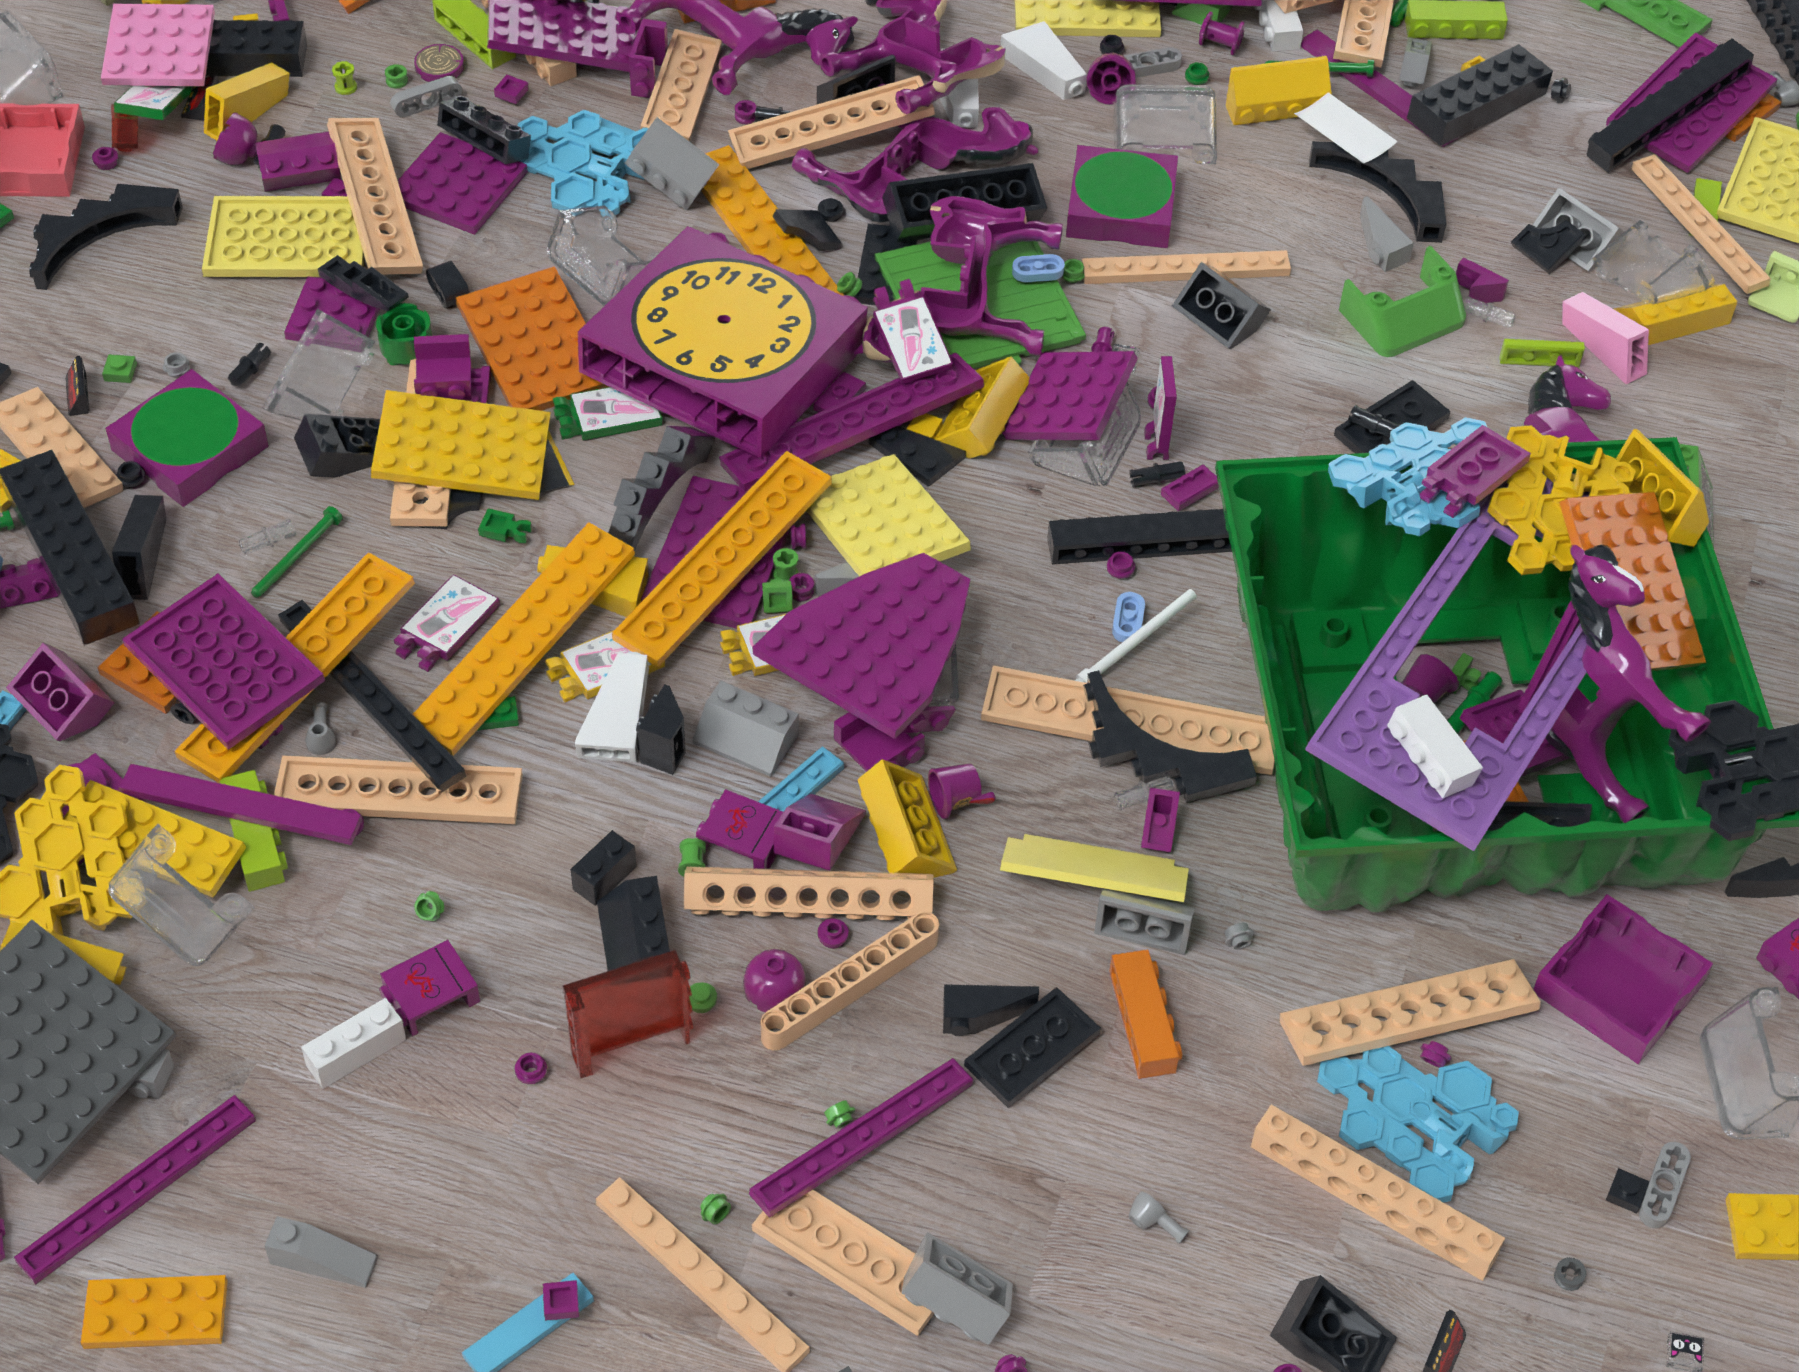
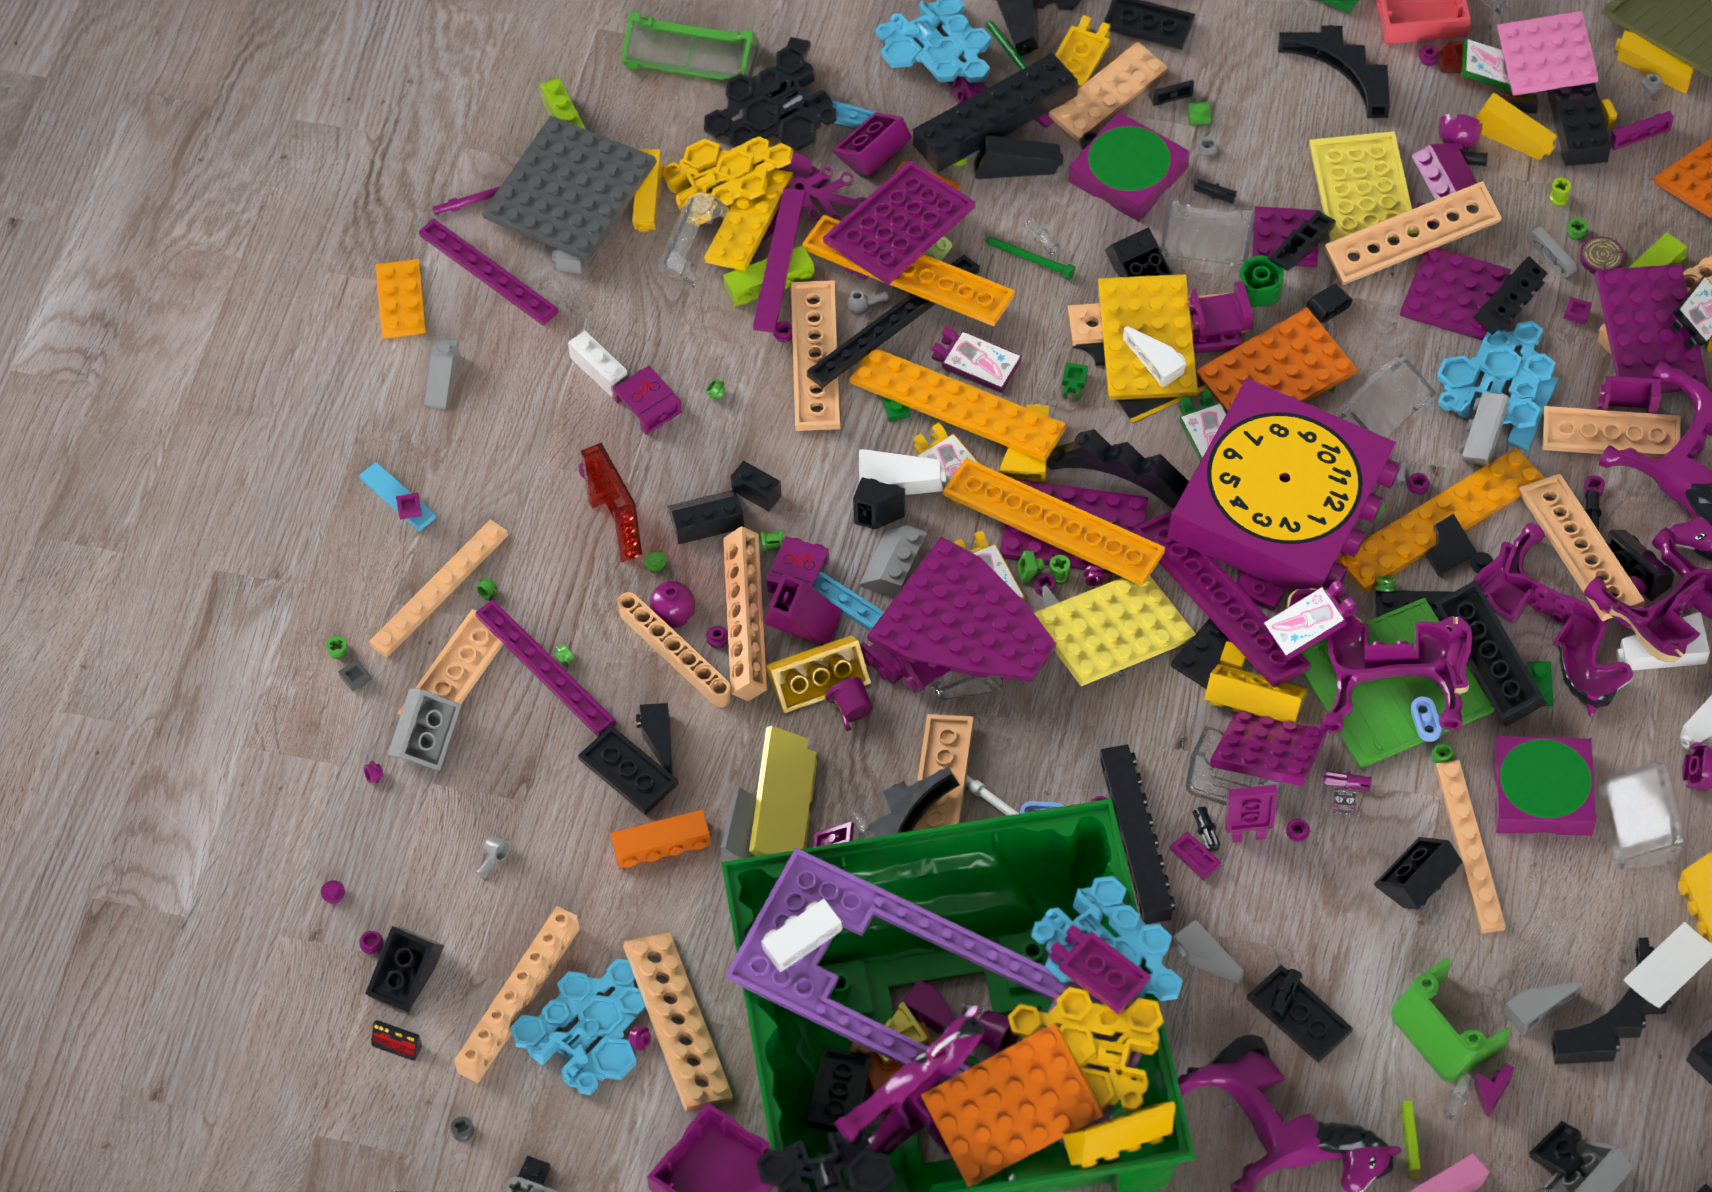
camera: 90 degrees right, 5 degrees up
(135, 751) = (825, 194): none -> magenta plant
(506, 428) = (1156, 356): none -> white slope

